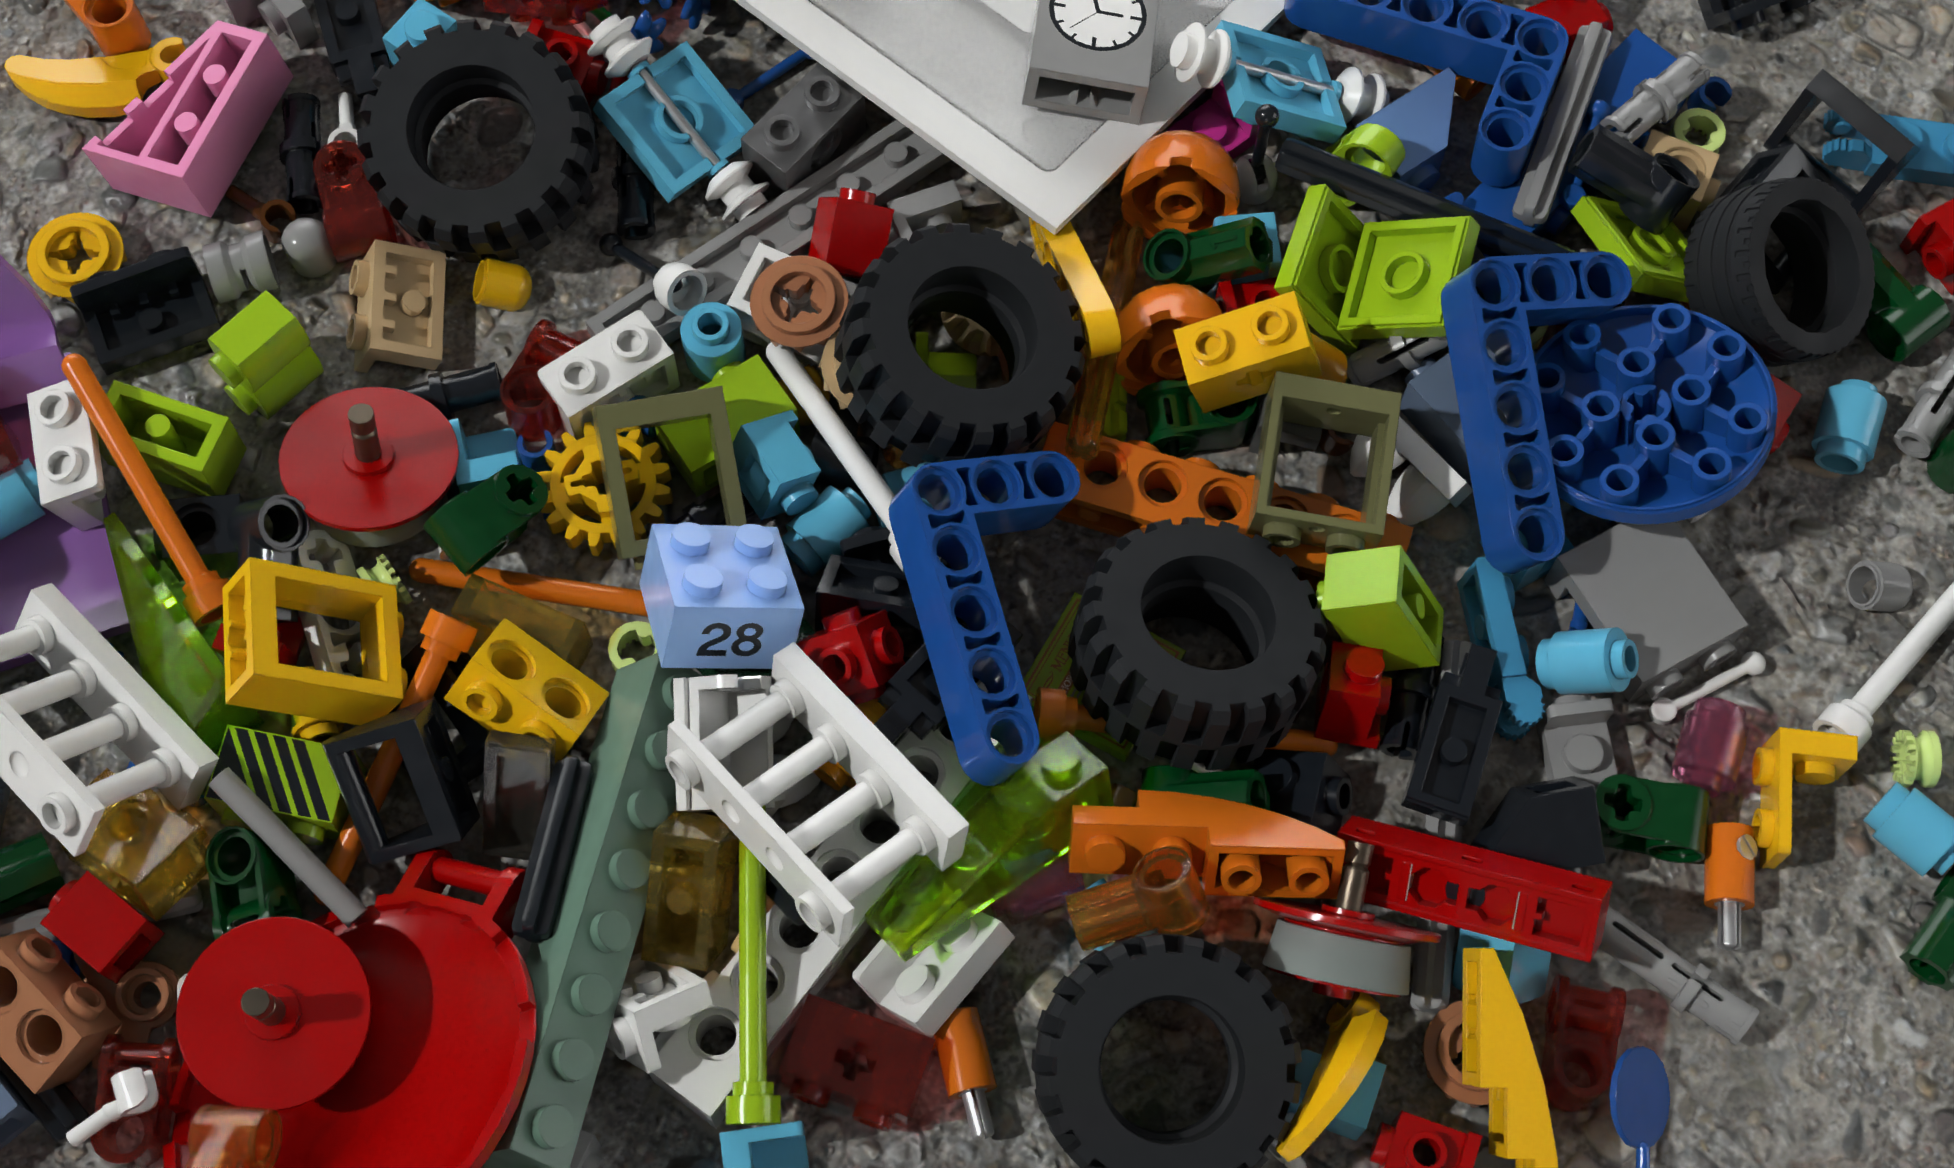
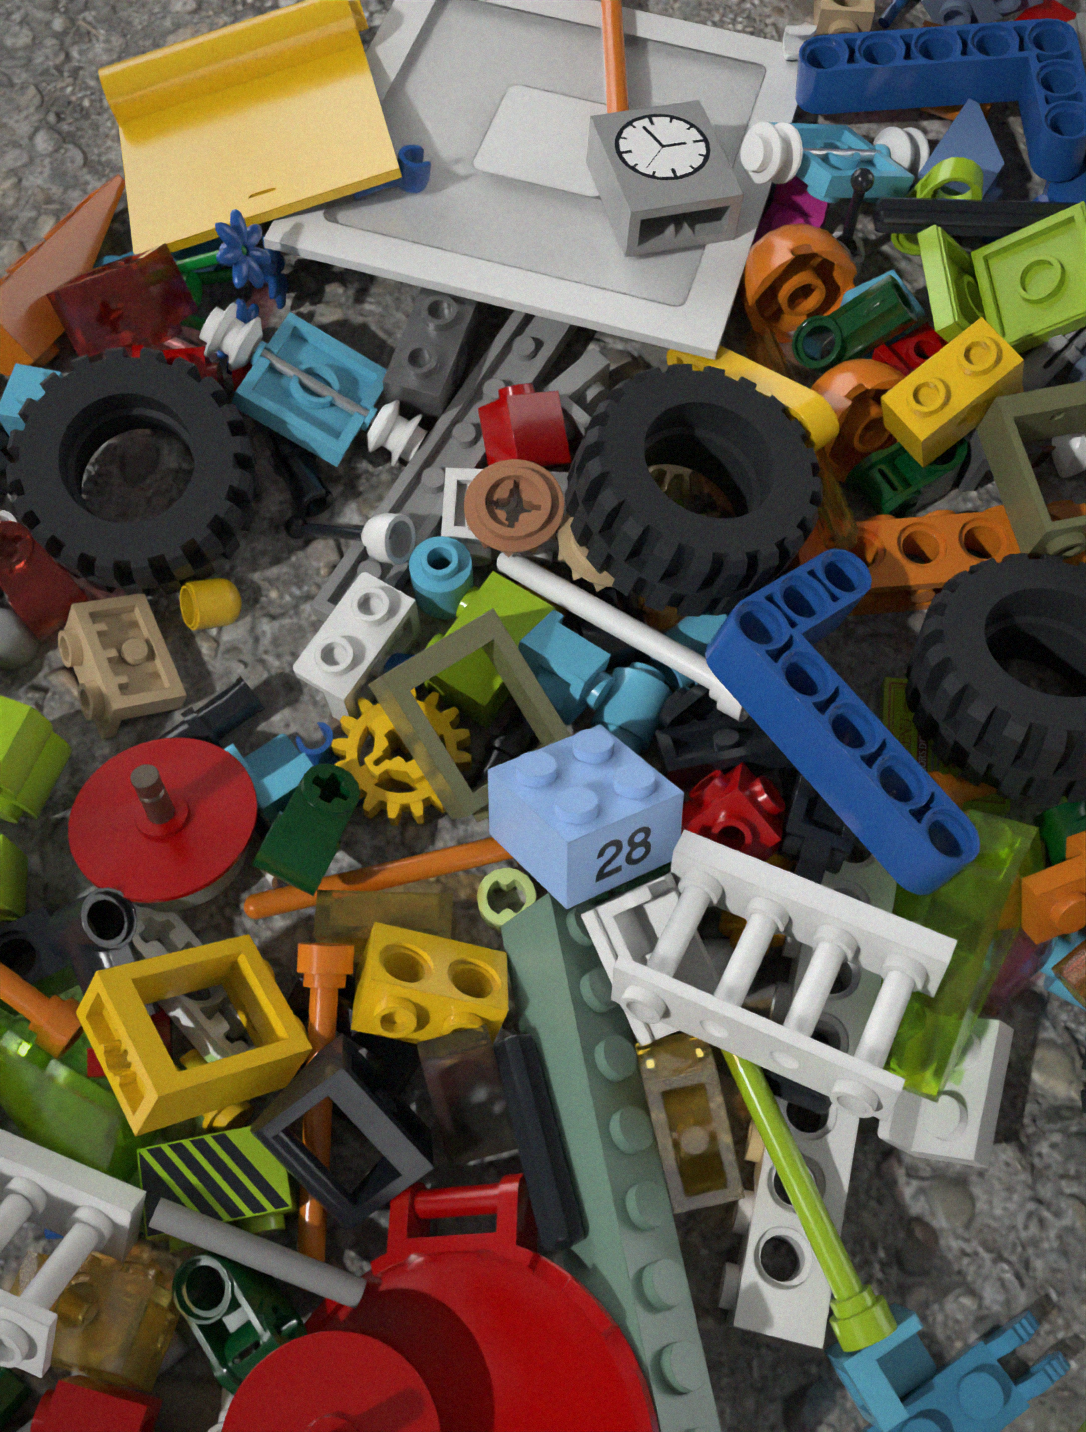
camera: 20 degrees left, 0 degrees up
(385, 573) = (225, 928): yellowish green bush -> none
(523, 384) = (281, 650): clear red piece -> none
(653, 1000) = (719, 1256): white bracket -> none
(767, 77) = (395, 290): blue hinge -> none
(836, 1033) = (967, 1216): clear red brick -> none
(967, 1066) = (1030, 1181): orange piece -> none

